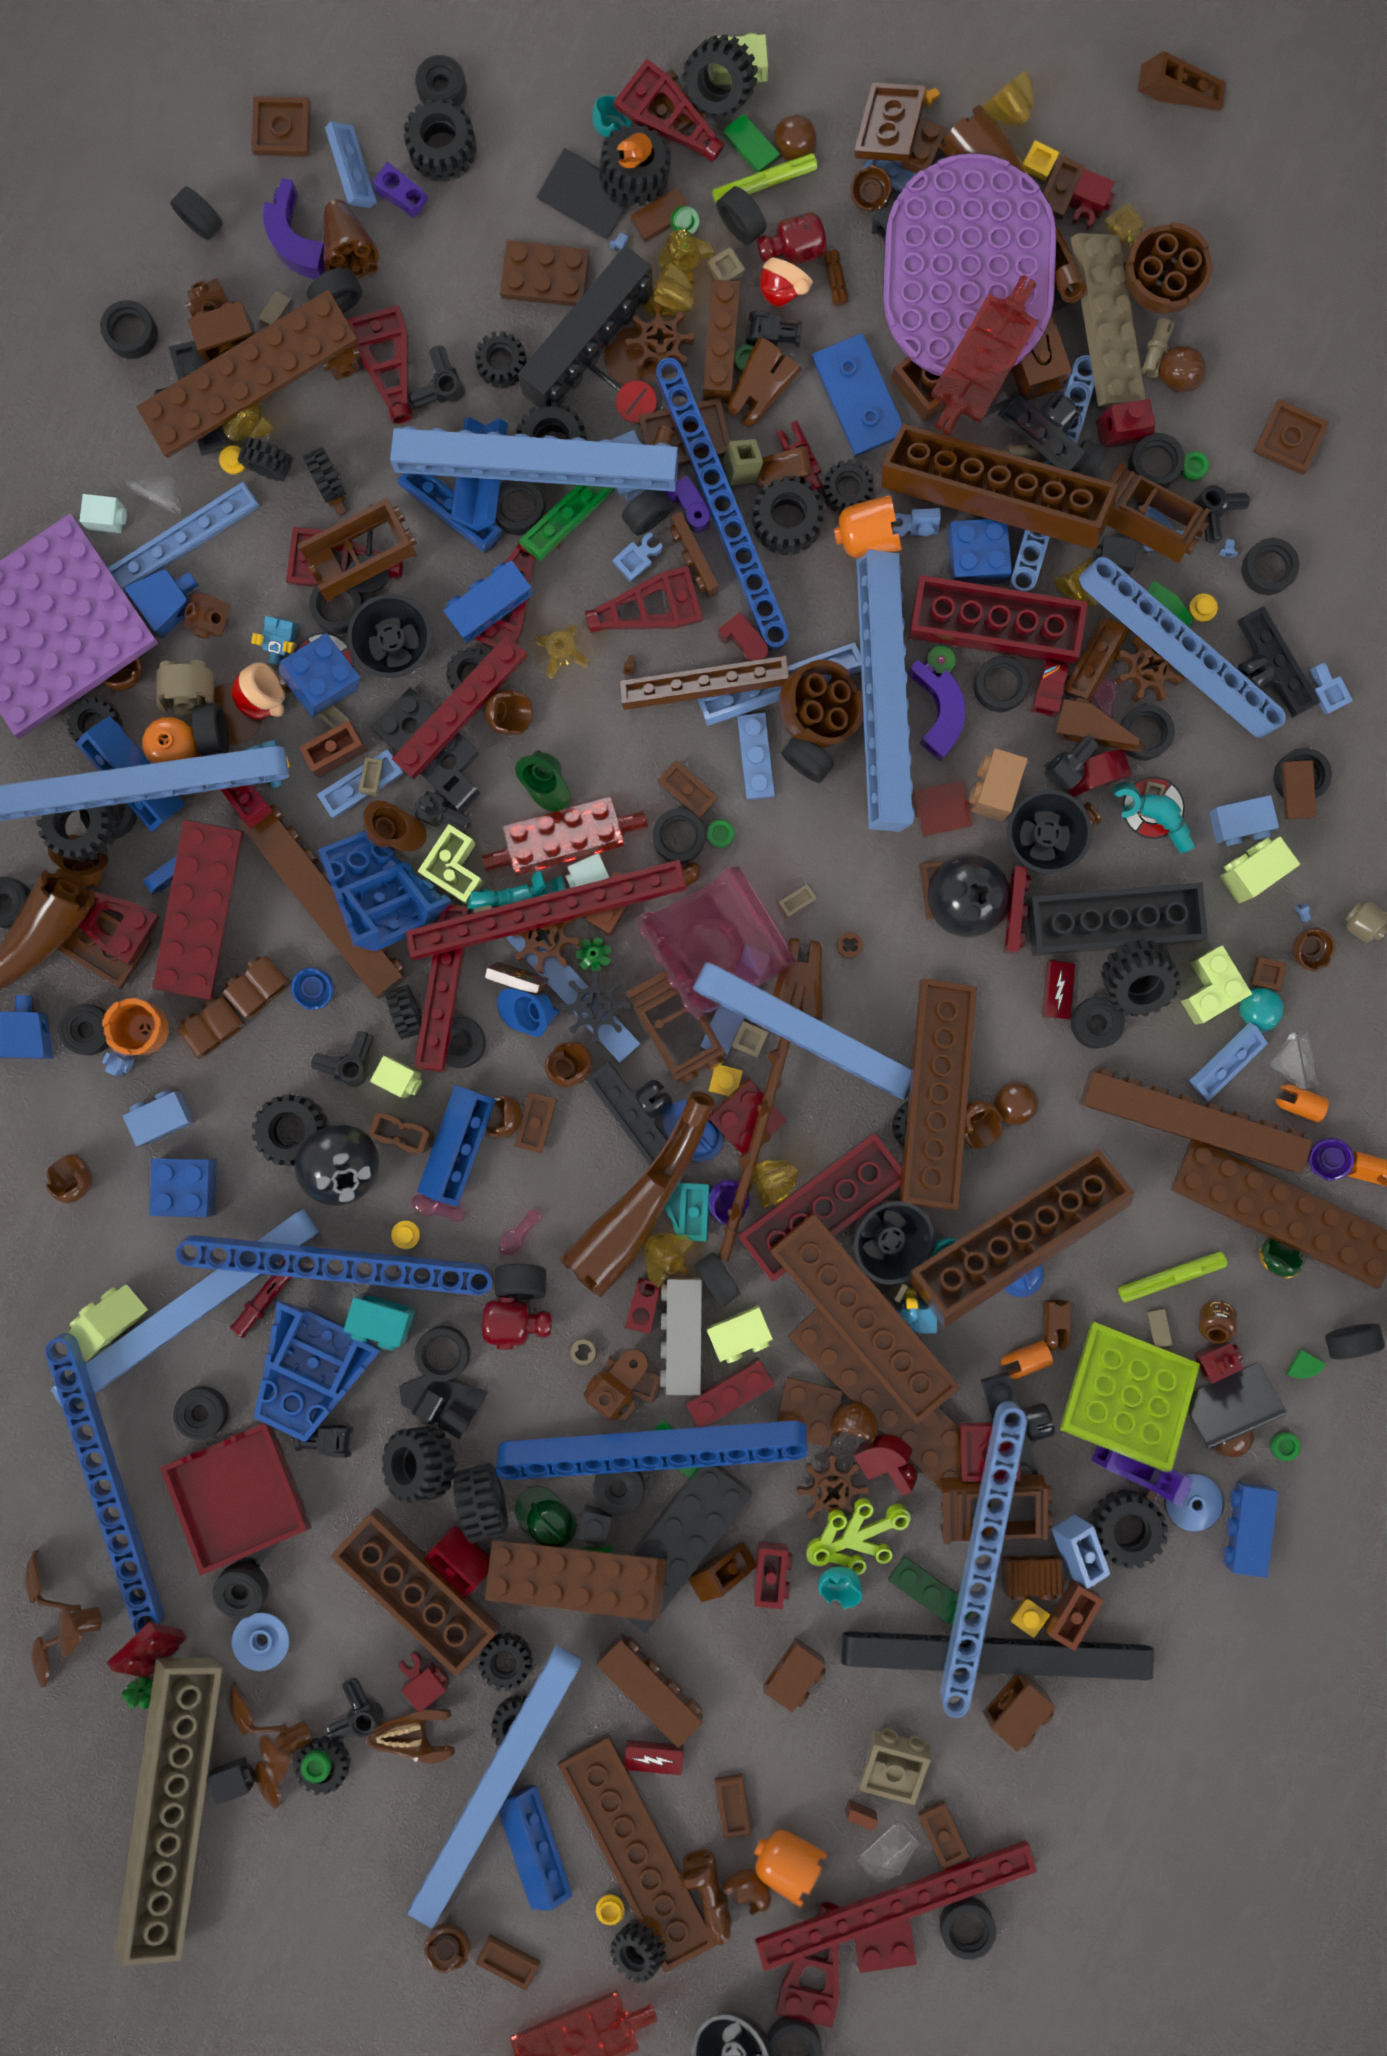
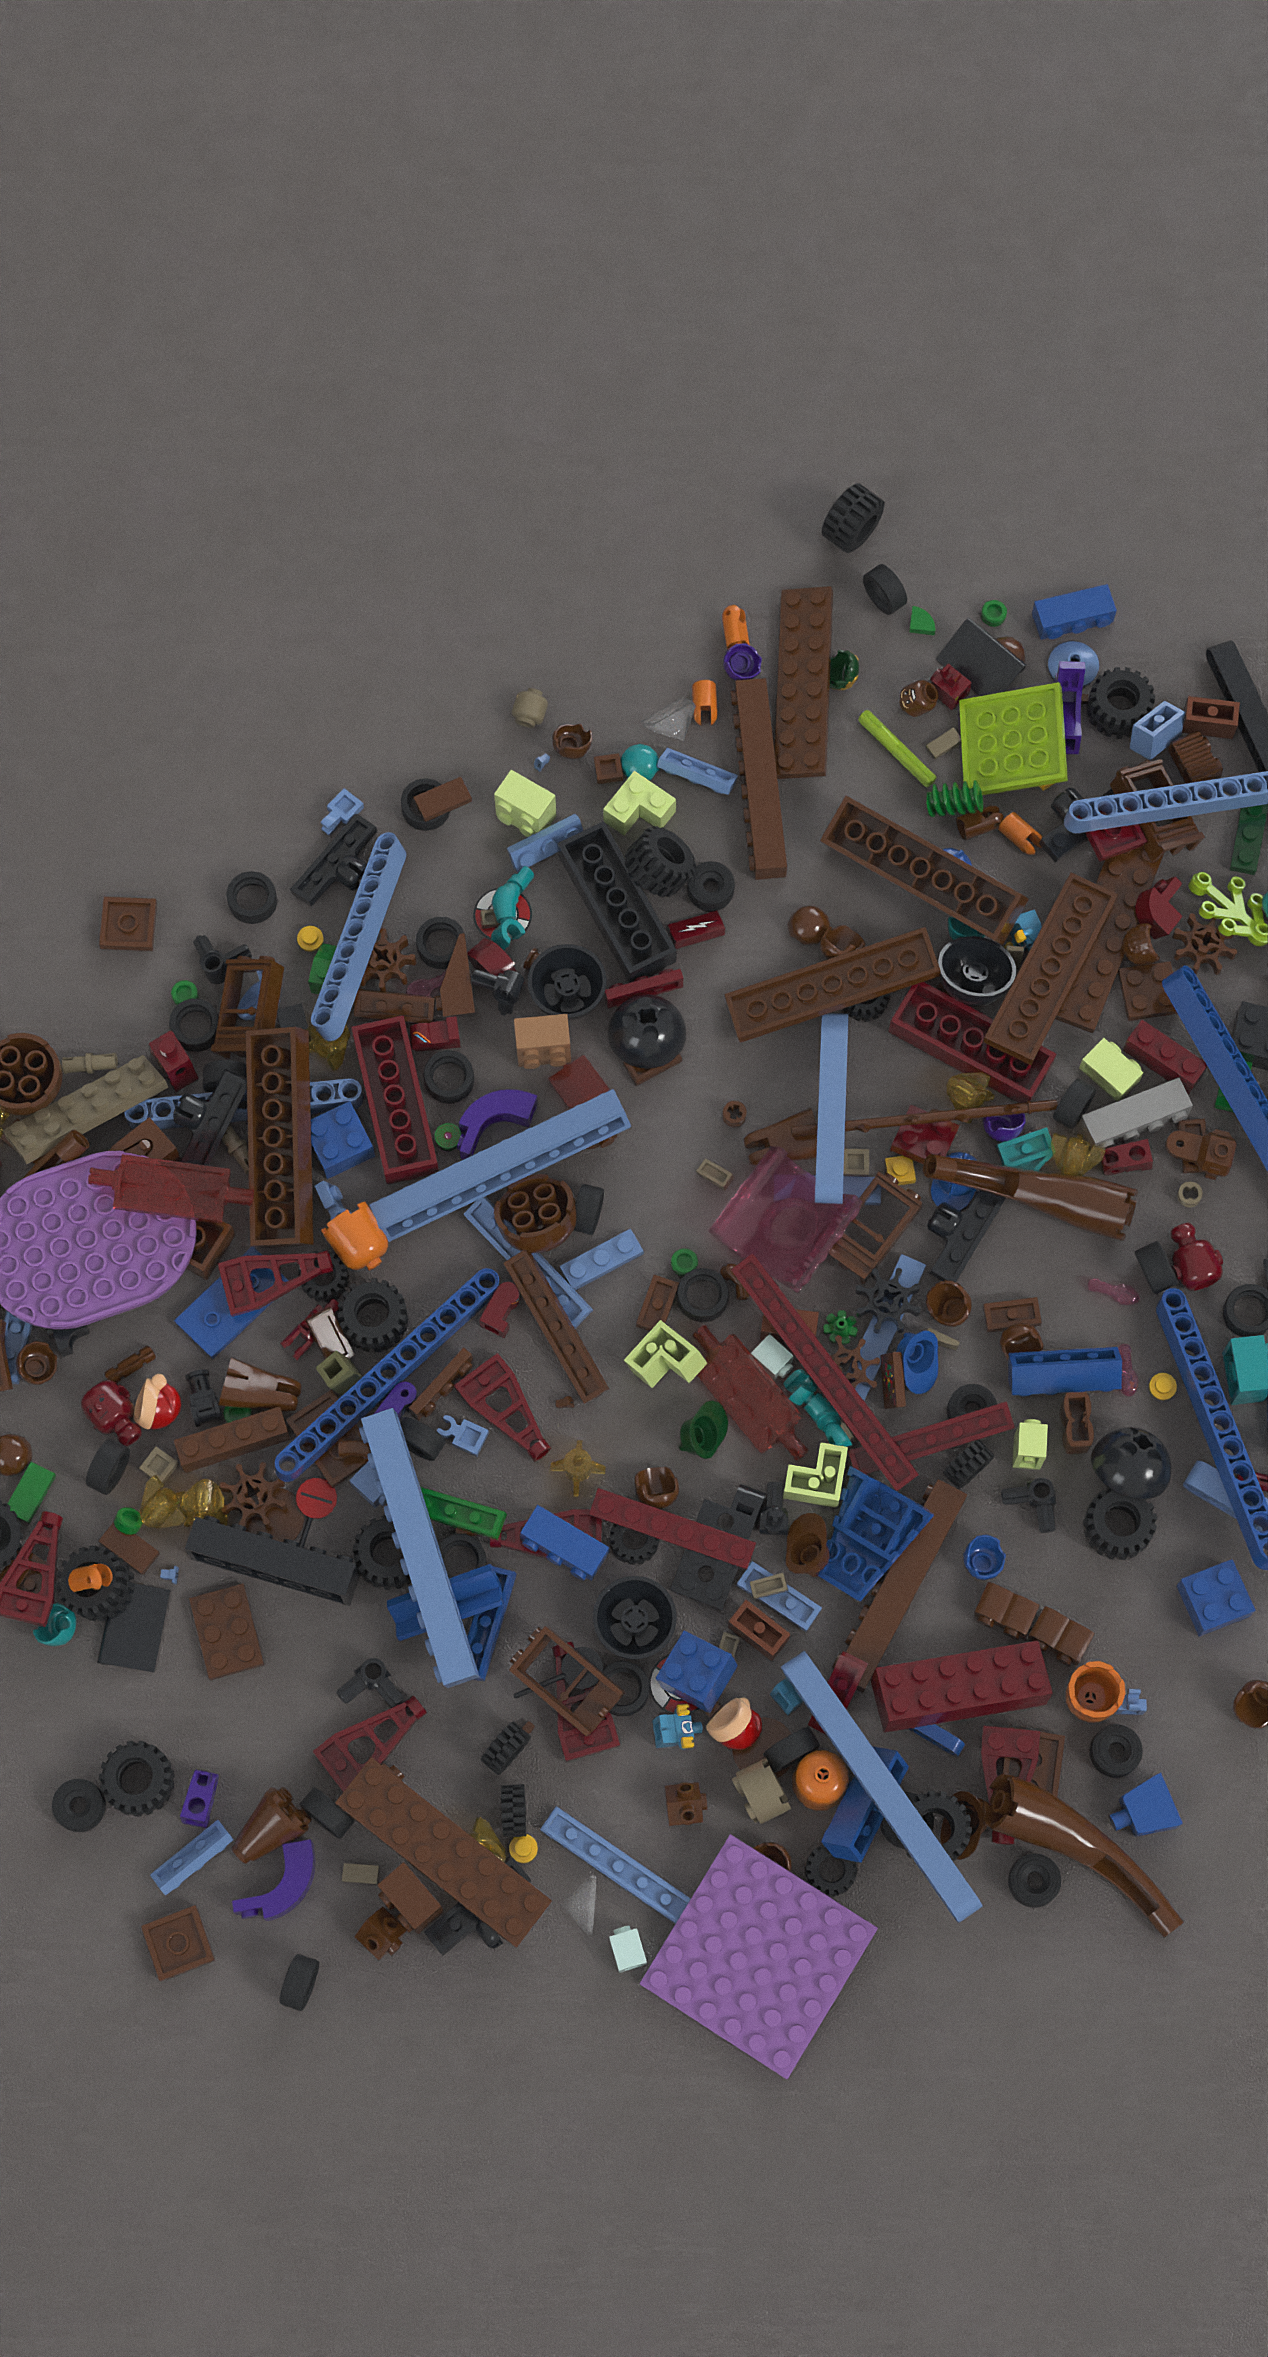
camera: 115 degrees left, 15 degrees down
(111, 318) = (420, 1990): black tyre -> none
(158, 1118) = (1164, 1648): medium blue brick -> none
(162, 599) = (685, 1854): blue torso -> none
(495, 344) = (321, 1619): black tyre -> none
(544, 1040) = (945, 1341): none -> dark tan piece
(634, 773) = (662, 1351): none -> yellowish green brick
(770, 176) = (59, 1466): lime axle -> none
(869, 400) = (239, 1286): none -> dark red plate
(1029, 1617) = (1230, 752): yellow plate -> none
(1088, 1307) = (954, 799): none -> green piece
(1182, 369) = (101, 1034): reddish brown hair -> none
(1211, 872) = (543, 843): none -> medium blue plate
(1229, 550) = (248, 938): medium blue piece -> none
(1244, 820) = (484, 835): medium blue brick -> none

